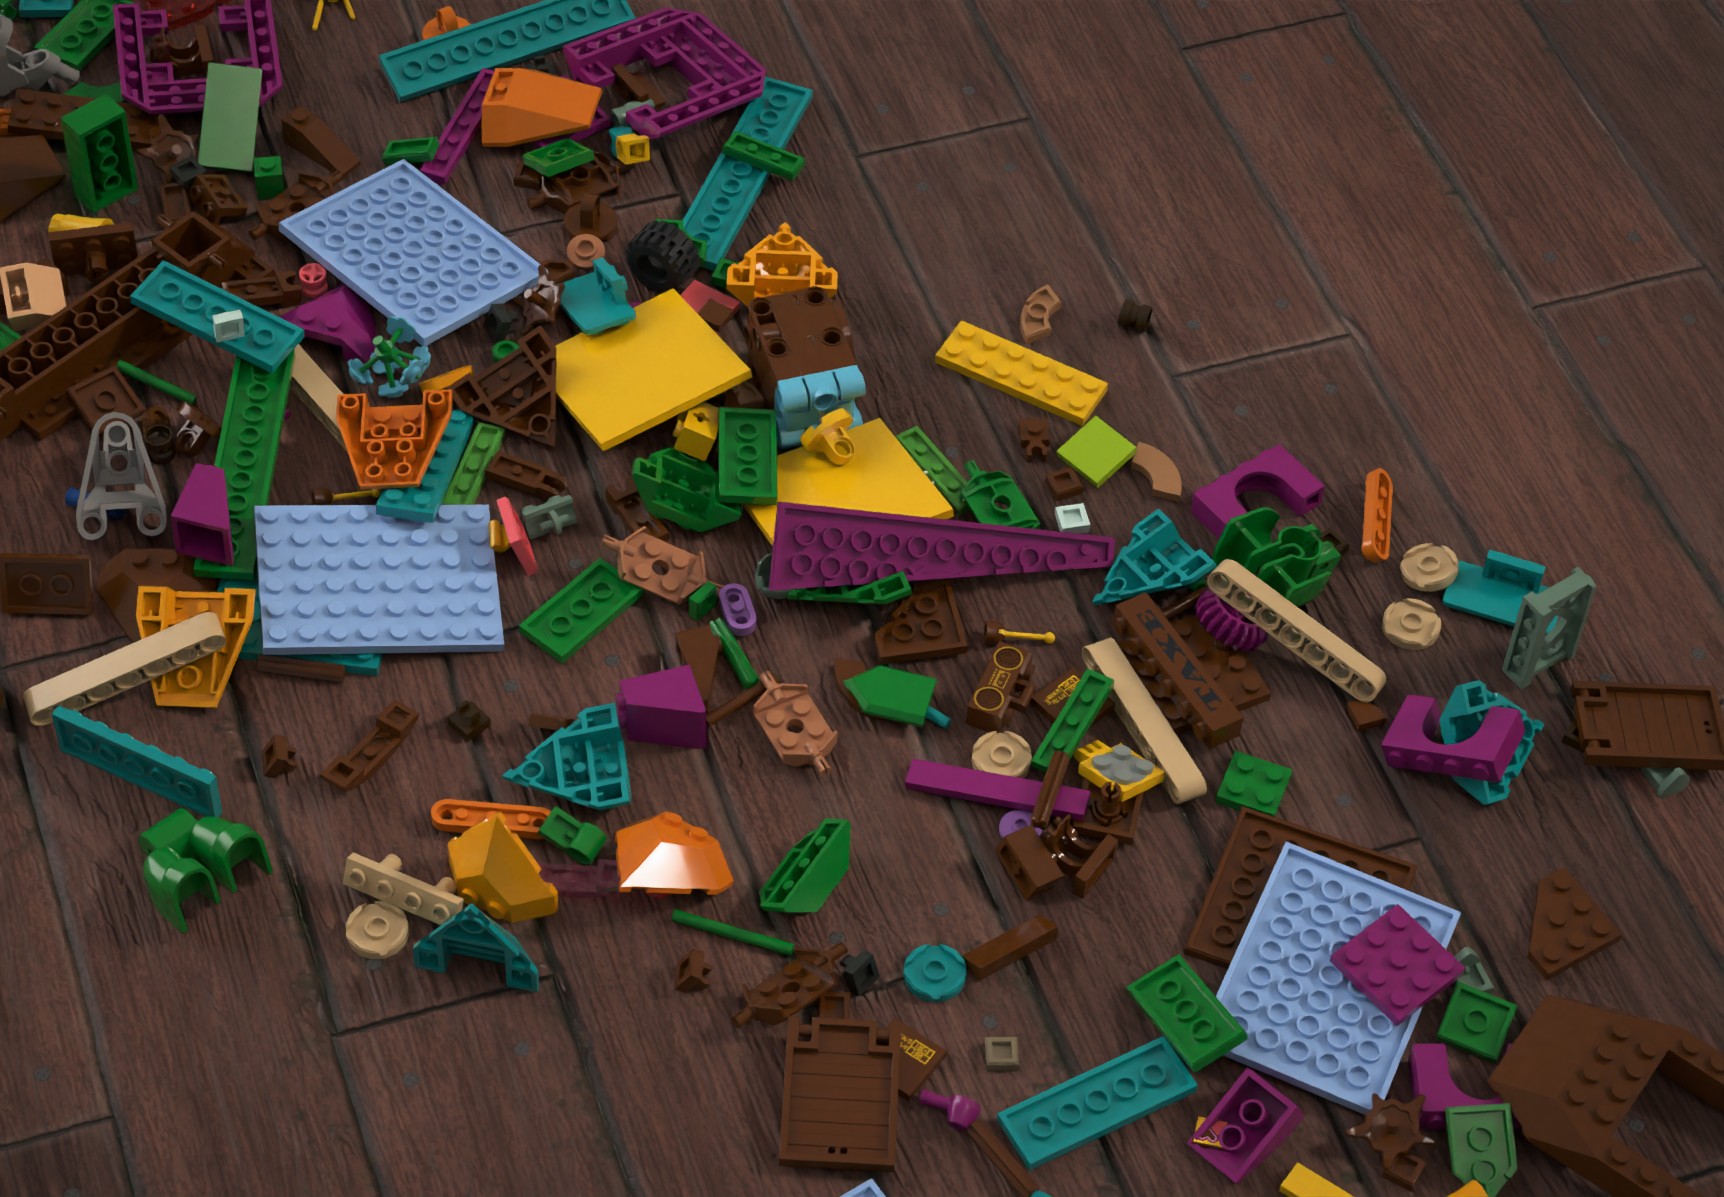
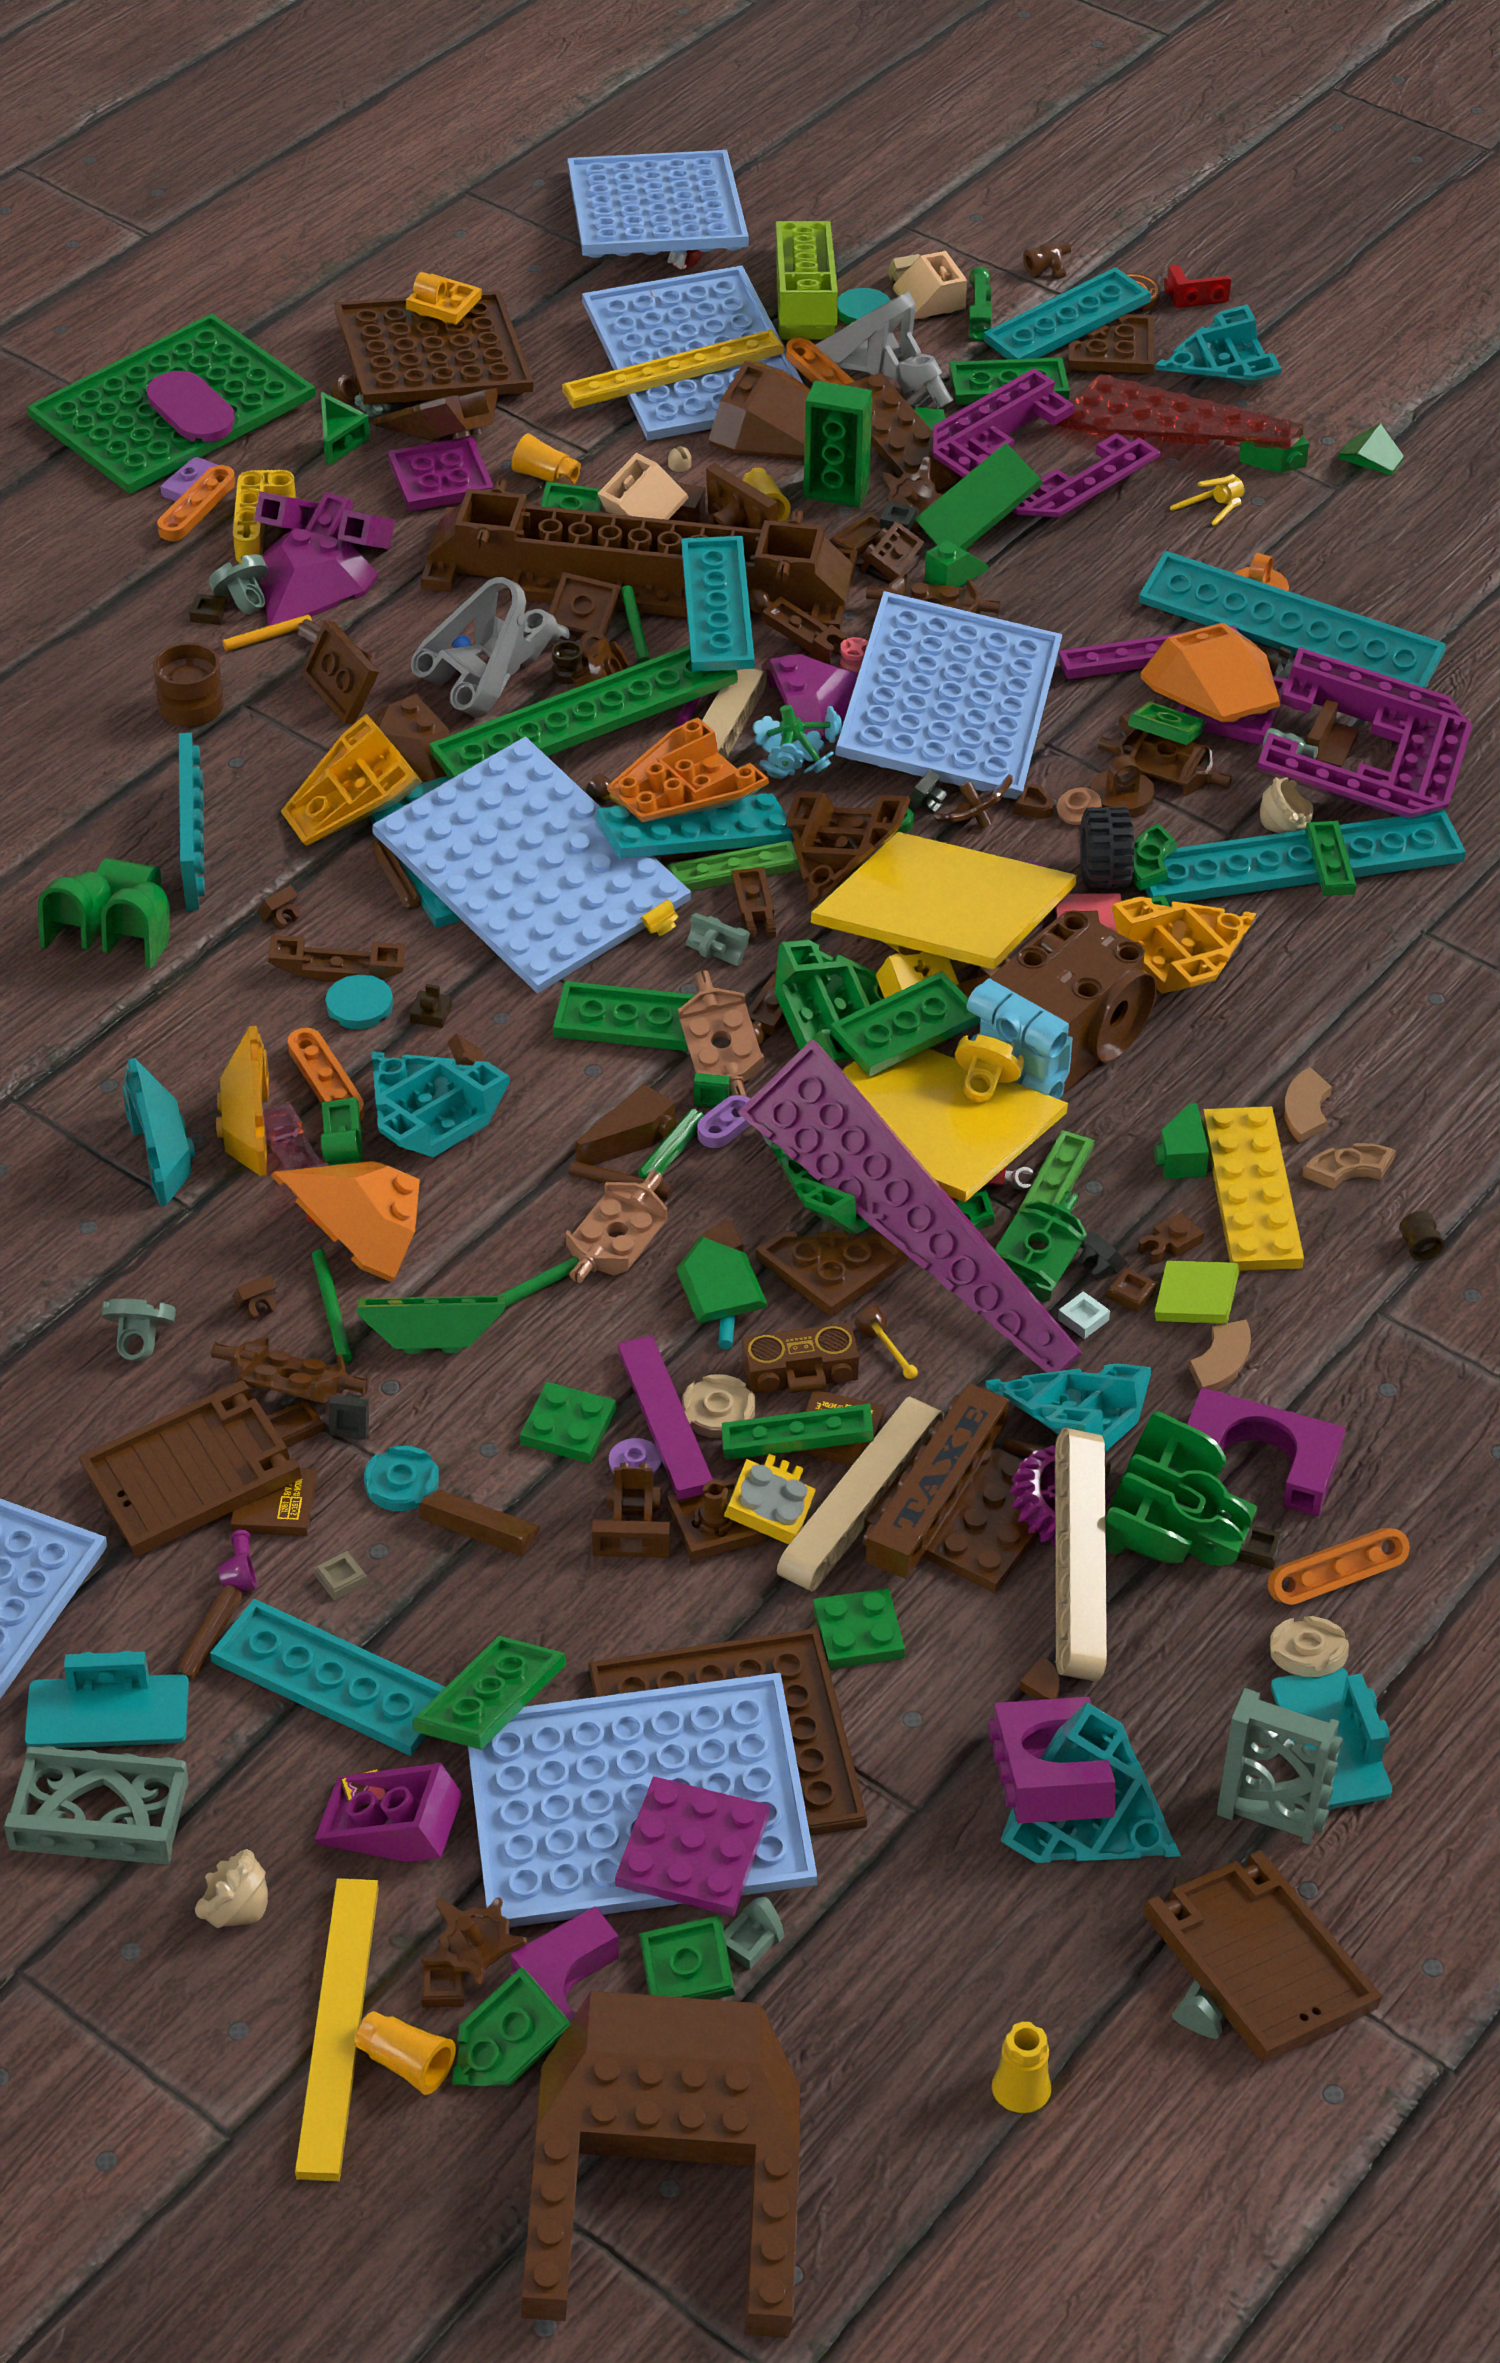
camera: 60 degrees right, 5 degrees down
(126, 667) = (284, 760): tan beam -> none
(185, 58) = (1038, 450): reddish brown tile -> none
(203, 517) = (476, 706): magenta slope -> none
(228, 325) = (699, 607): light aqua plate -> none
(317, 141) = (1025, 575): reddish brown slope -> none
(377, 930) = (152, 1055): tan tile -> none
(403, 891) = (185, 1040): tan plate -> none
(411, 150) = (1078, 634): green tile -> none
(423, 760) = (359, 1001): none -> teal tile
(446, 379) = (837, 799): light orange plate -> none
(517, 536) = (661, 922): coral tile -> none
(597, 299) = (1007, 833): teal bracket -> none
(628, 146) = (1238, 761): yellow leg -> none
(663, 708) = (544, 1118): magenta slope -> none
(669, 1054) = (135, 1319): none -> sand green tile
(695, 151) = (1284, 807): none -> tan hair
(806, 798) = (540, 1281): none -> green bar
(954, 849) = (568, 1422): none -> green plate
(962, 382) = (1183, 1146): none -> green slope
(965, 302) = (1303, 1105): none -> medium nougat tile
(1028, 862) = (587, 1480): reddish brown hinge -> none
(1029, 476) = (1099, 1250): none -> pearl dark grey tile
(1049, 790) = (684, 1446): reddish brown axle -> none
(1411, 624) = (1214, 1669): tan tile -> none
(1566, 926) = (898, 1998): reddish brown plate -> none
(1670, 890) = (1022, 2073): none -> yellow plant

